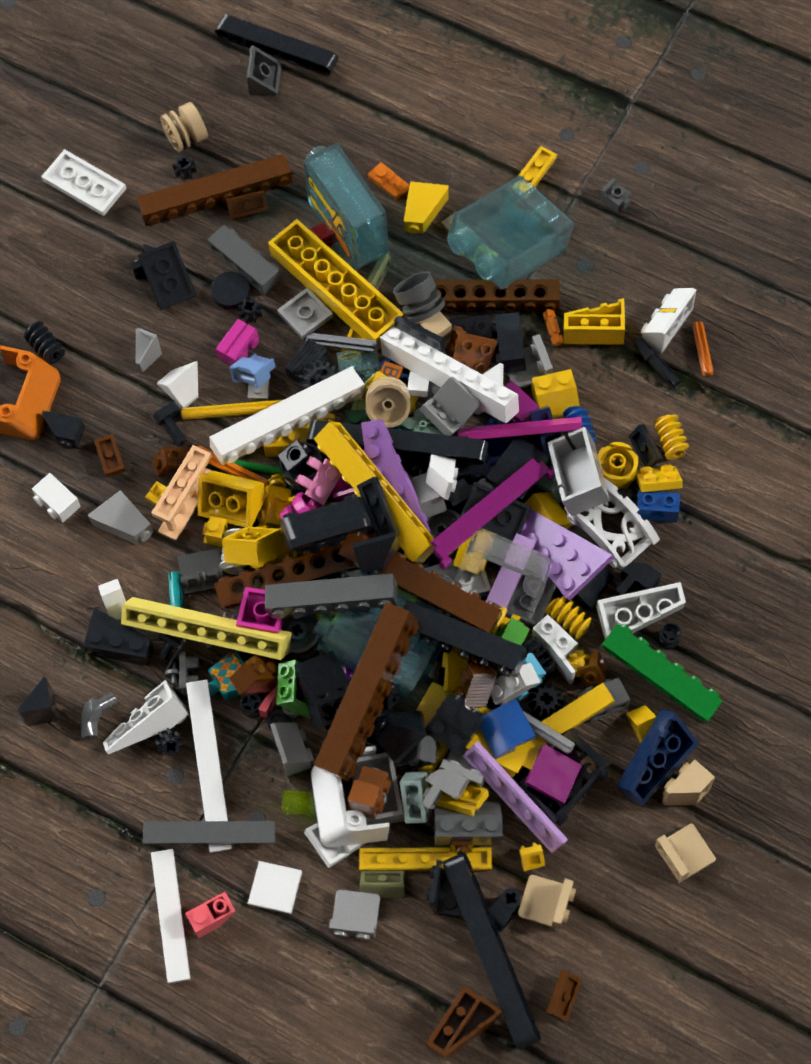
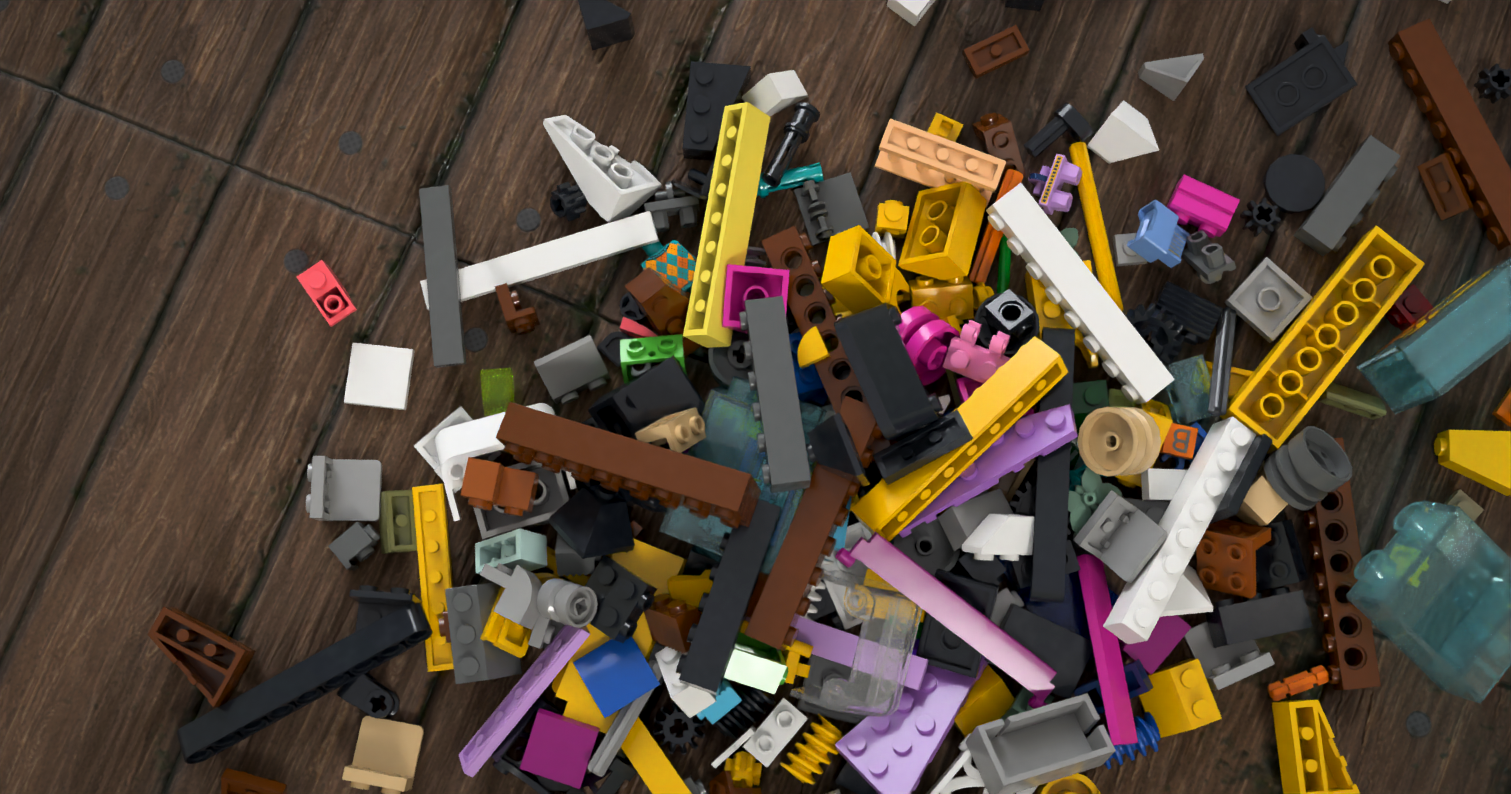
camera: 80 degrees right, 15 degrees up
(91, 714) = (599, 91): dark grey arm -> none
(121, 519) = (898, 84): light grey slope -> none
(145, 586) = (795, 134): none -> black pin
(170, 916) = (330, 242): white tile -> none
(201, 421) = (1050, 184): none -> lavender hips
(242, 784) = (517, 319): none -> reddish brown bracket
(274, 342) = (1206, 258): none -> dark grey hips
(300, 575) = (811, 348): none -> yellow tile
(343, 662) = (678, 429): none -> tan bracket
(396, 911) = (355, 545): none -> dark grey brick
(455, 750) = (567, 602): none -> light grey wheel
(532, 857) = (446, 728): yellow tile -> none

